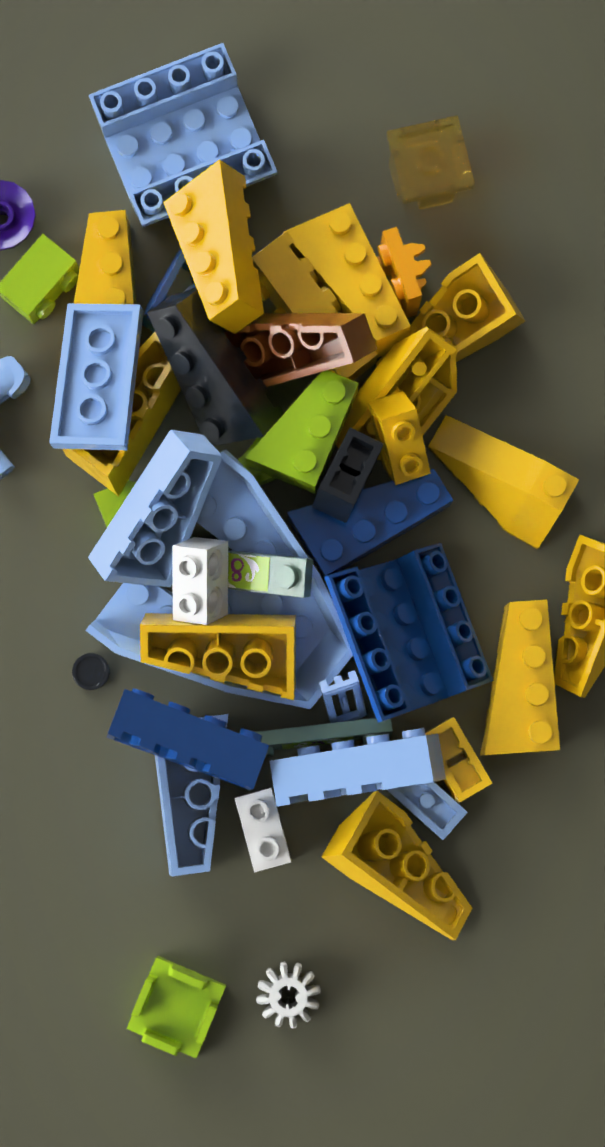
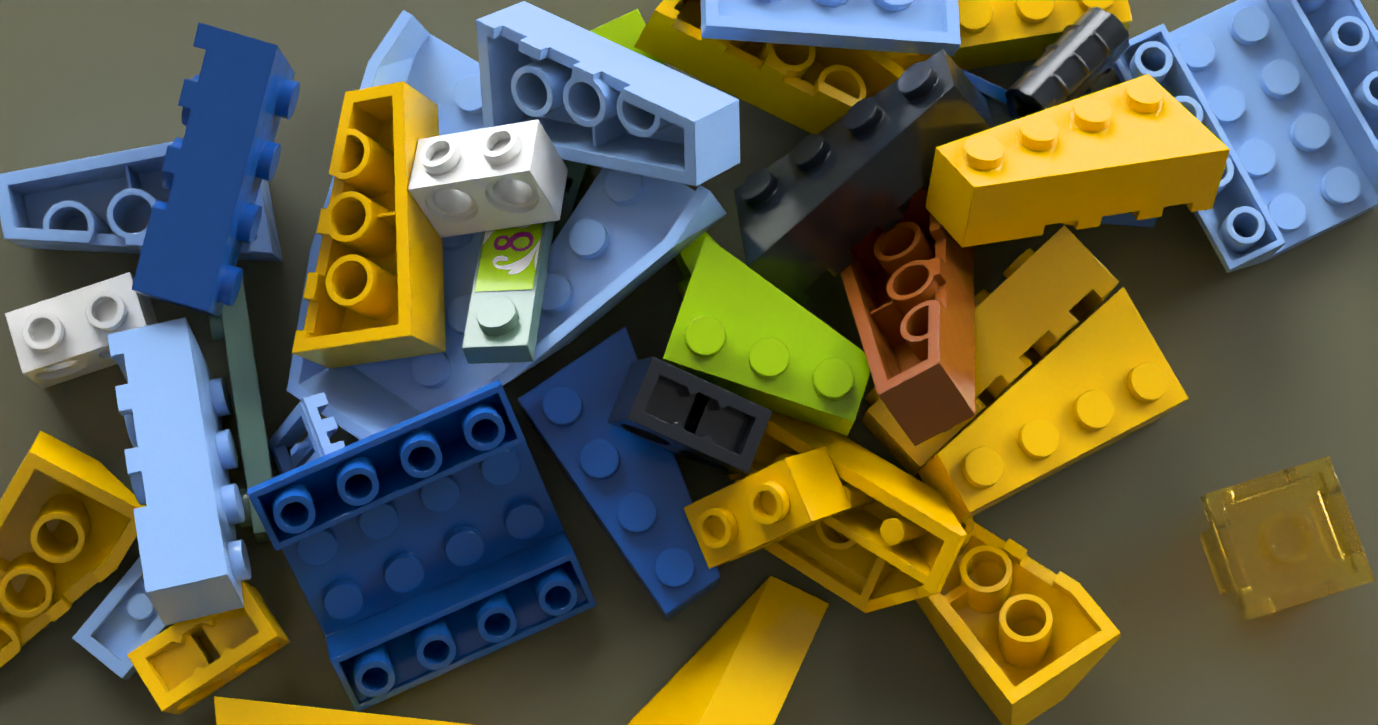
camera: 85 degrees right, 5 degrees down
(90, 671) = (348, 39): black piece -> none
(155, 246) = (1070, 64): none -> black axle
(402, 269) = (1075, 503): light orange piece -> none

